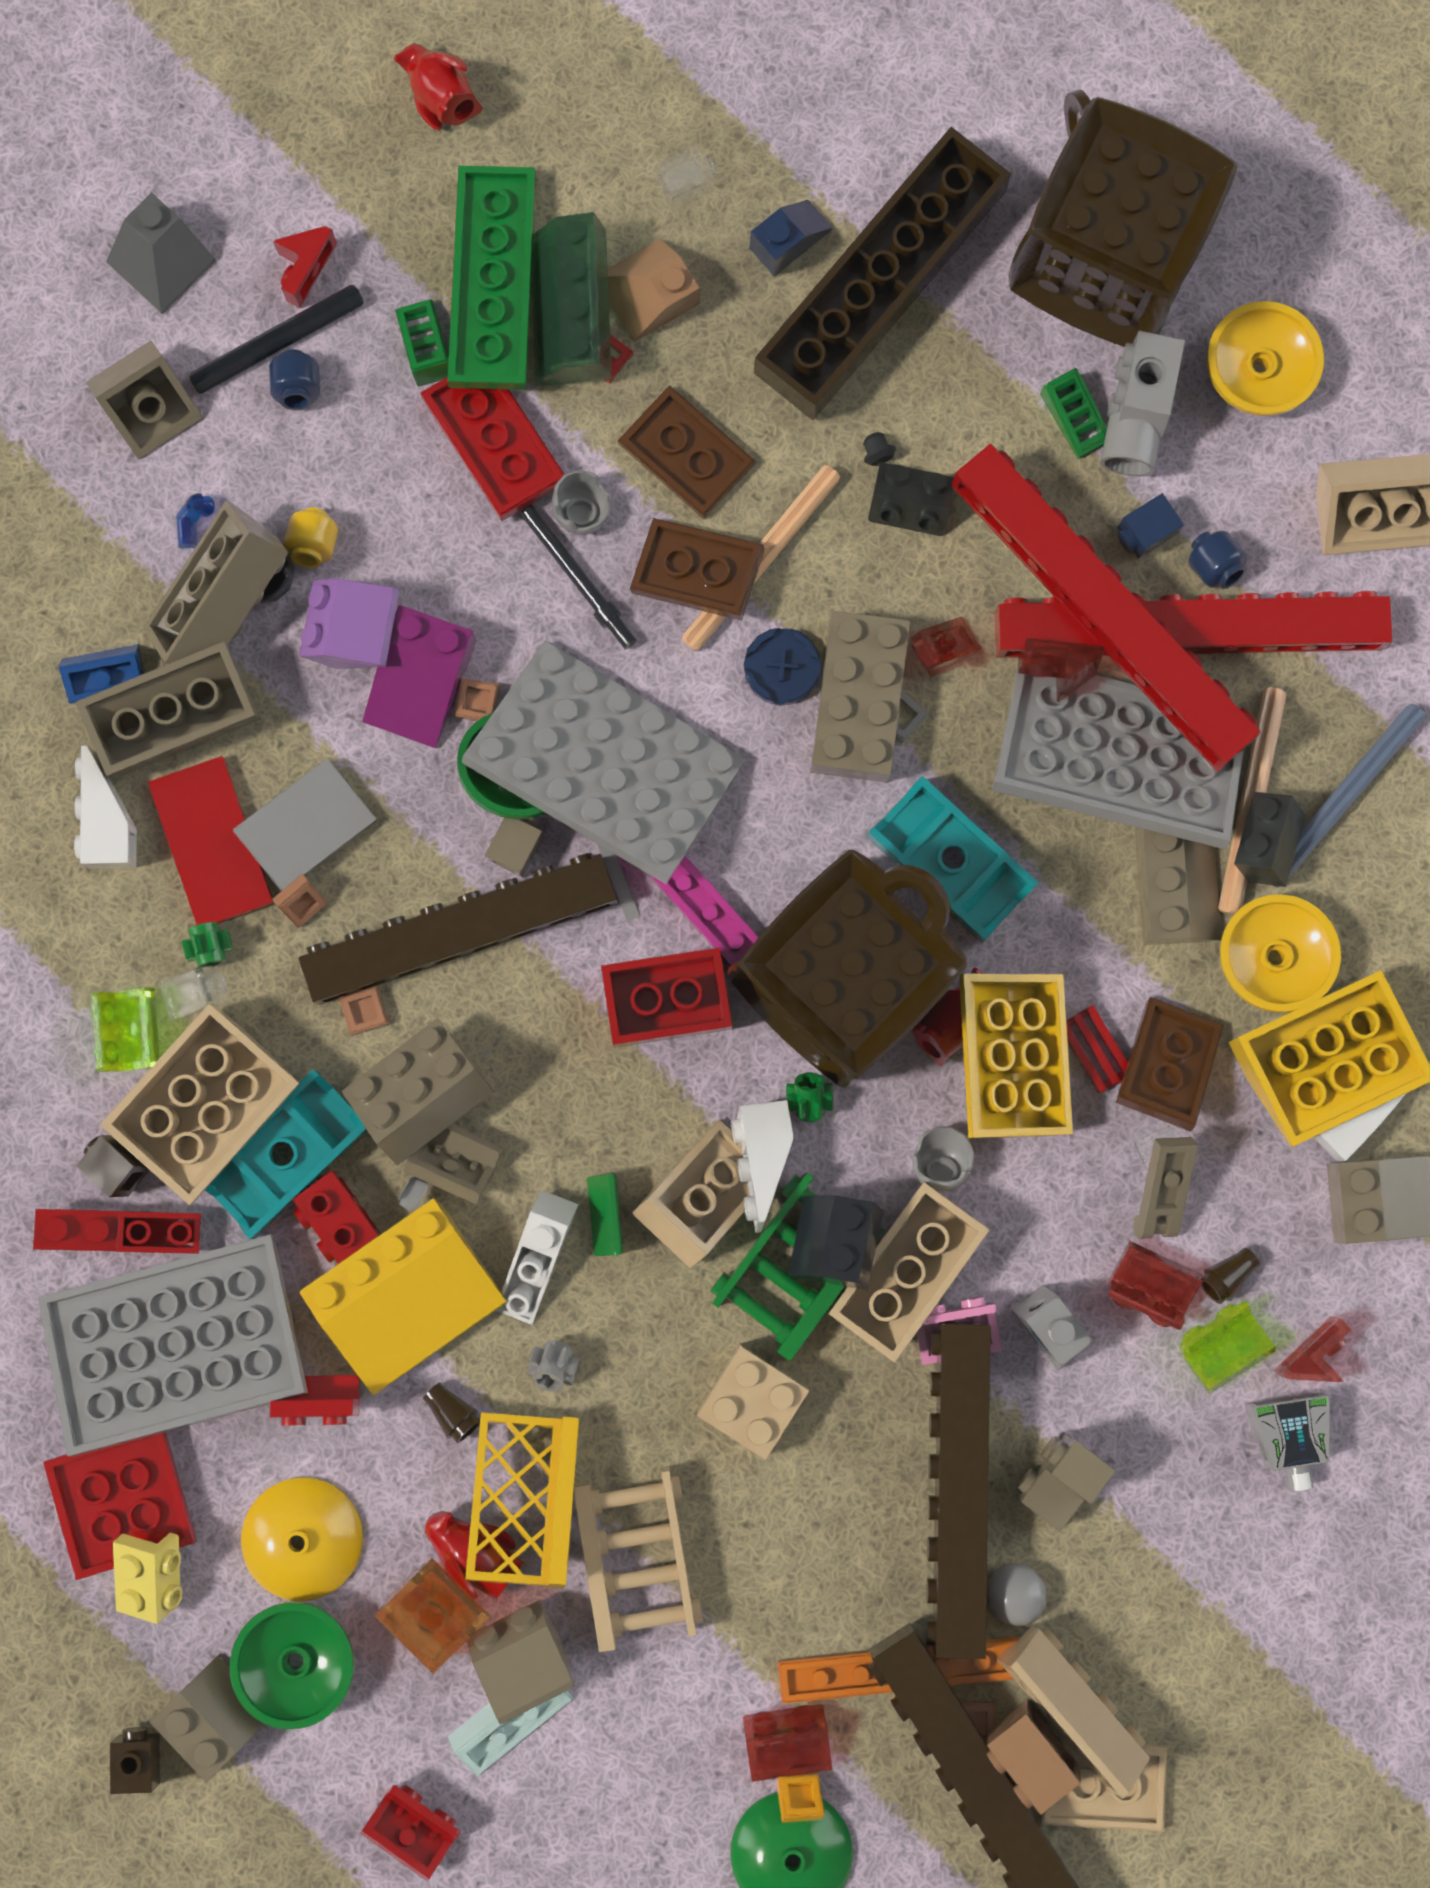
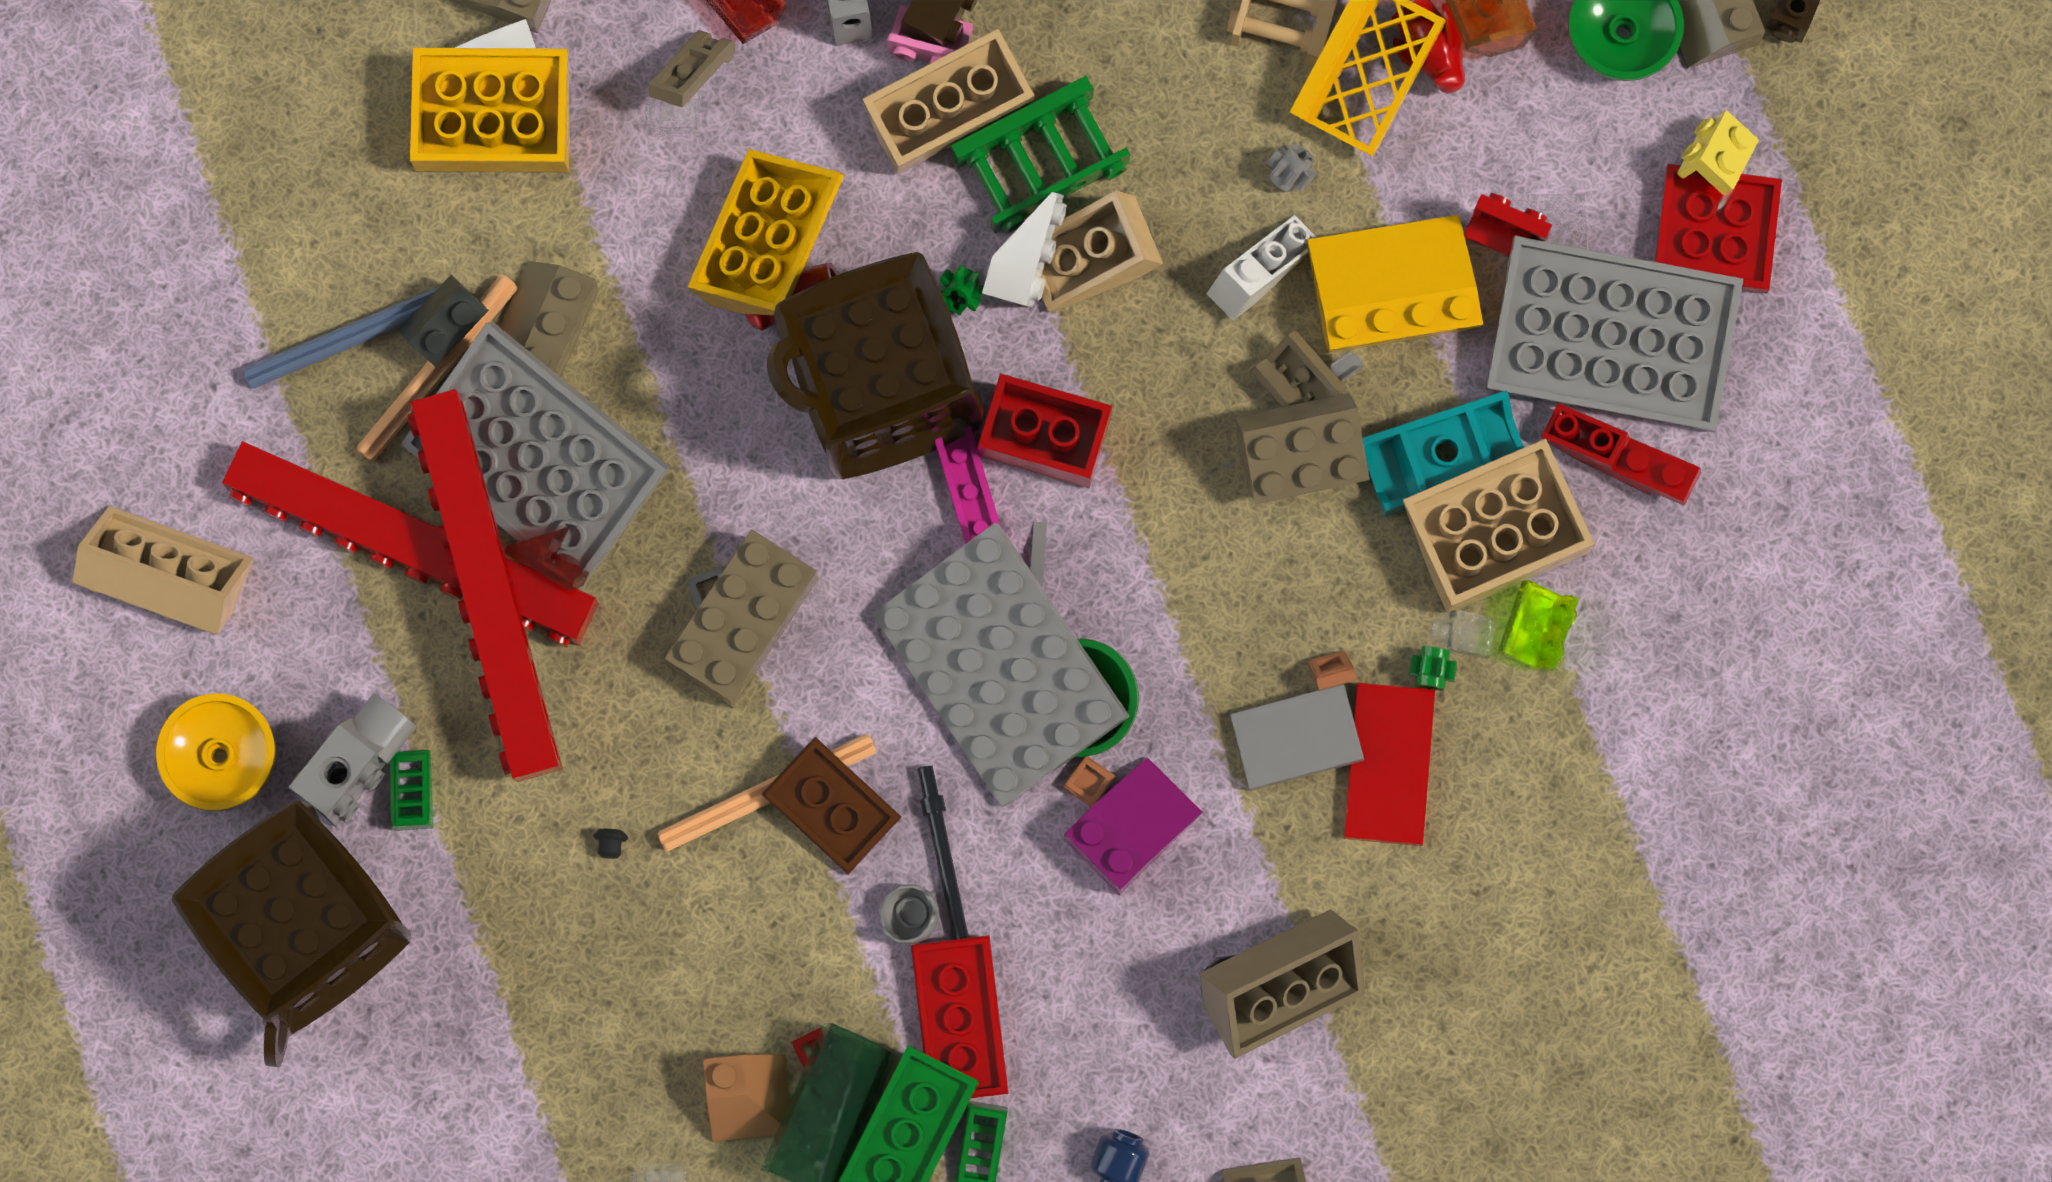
camera: 150 degrees left, 5 degrees down
(99, 671) = (1420, 968): blue slope -> none
(106, 828) = (1475, 821): white slope -> none
(111, 1166) = (1603, 511): brick -> none
(167, 710) = (1374, 888): dark tan slope -> none
(188, 517) = (1274, 1078): clear blue arm -> none
(310, 537) = (1172, 1000): yellow head -> none
(324, 1521) = (1570, 152): yellow dish -> none
(335, 1217) = (1423, 376): red brick -> none
(349, 624) = (1173, 894): medium lavender slope -> none
(364, 1010) = (1318, 550): nougat tile -> none
(452, 1413) = (1397, 170): dark brown cone -> none
(458, 929) = (1201, 579): dark brown brick -> none
(515, 844) = (1117, 627): dark tan brick -> none
(605, 1215) = (1187, 274): green slope -> none
(686, 452) = (787, 924): reddish brown tile -> none
(752, 1401) = (1134, 60): tan piece -> none
(782, 666) = (796, 684): dark blue tile -> none
(787, 235) = (589, 1083): dark blue slope -> none
(836, 1240) = (999, 151): black slope -> none
(881, 273) = (524, 999): dark brown brick -> none
(911, 499) = (601, 781): pearl dark grey bracket -> none
(943, 1158) = (870, 183): light grey hair -> none
(944, 645) = (641, 630): clear red slope -> none
(986, 883) = (740, 475): teal piece -> none
(1108, 1040) = (685, 187): red tile -> none
(1149, 526) = (401, 652): dark blue brick -> none
(1170, 1064) = (631, 172): reddish brown tile -> none
(1217, 559) = (354, 593): dark blue head -> none
(1294, 931) = (483, 193): yellow dish -> none

